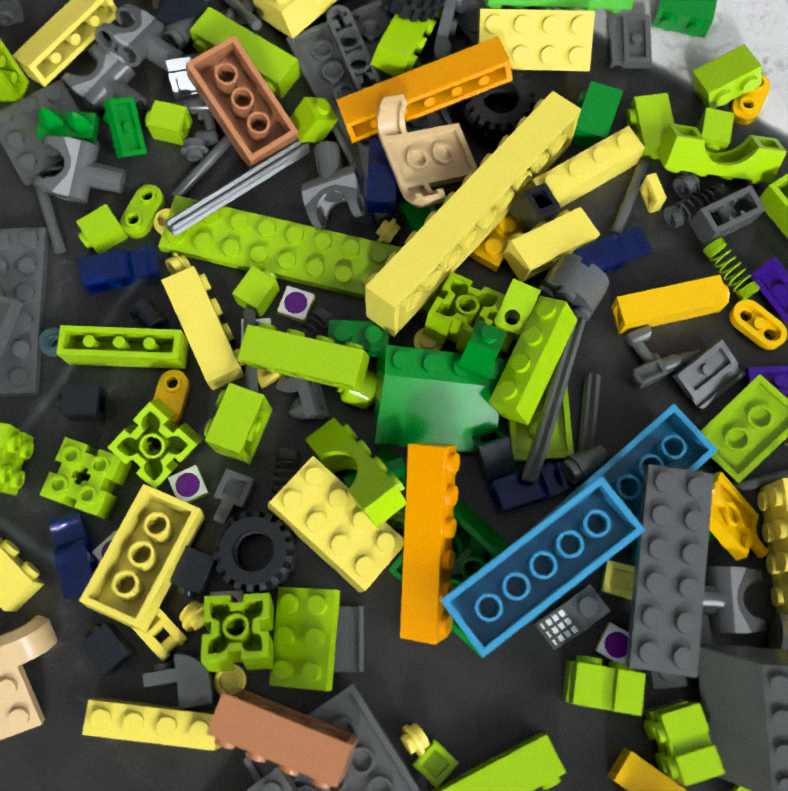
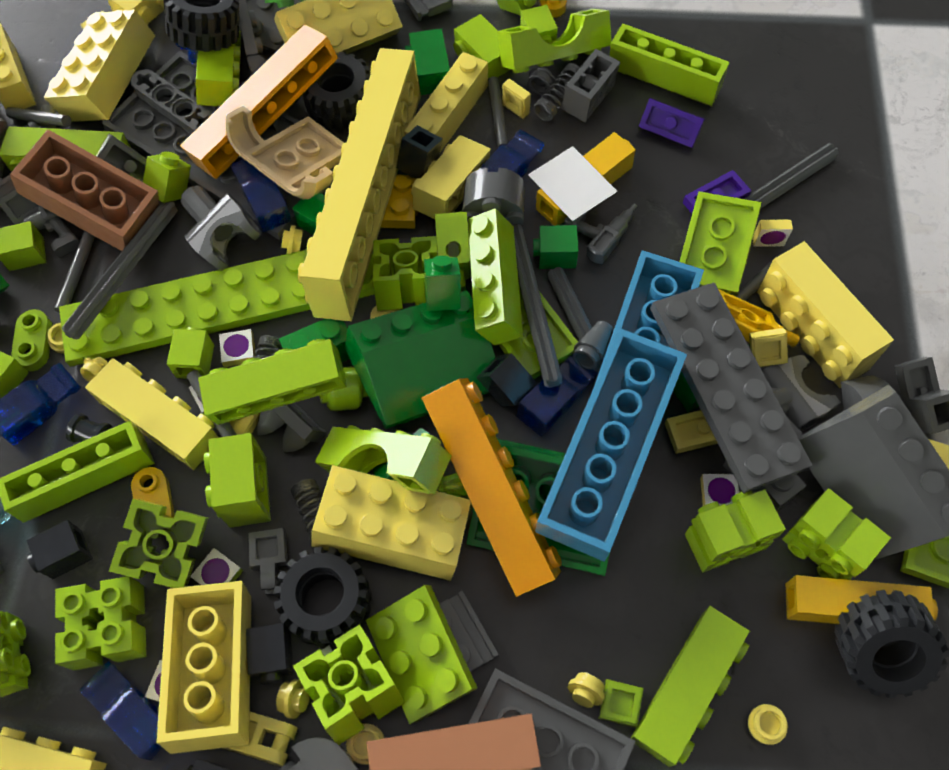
camera: 30 degrees left, 10 degrees down
(194, 149) = (57, 258): dark grey plate -> none
(286, 86) = (122, 157): none -> dark grey slope
(572, 617) = (666, 487): dark grey slope -> none
(606, 355) = (556, 246): none -> green brick
(652, 305) = (572, 183): none -> white sticker
(709, 374) = (655, 219): dark grey plate -> none
(714, 248) = (597, 115): lime piece -> none
(729, 552) = (769, 347): none -> light yellow tile
(758, 322) = (670, 159): yellow plate -> none

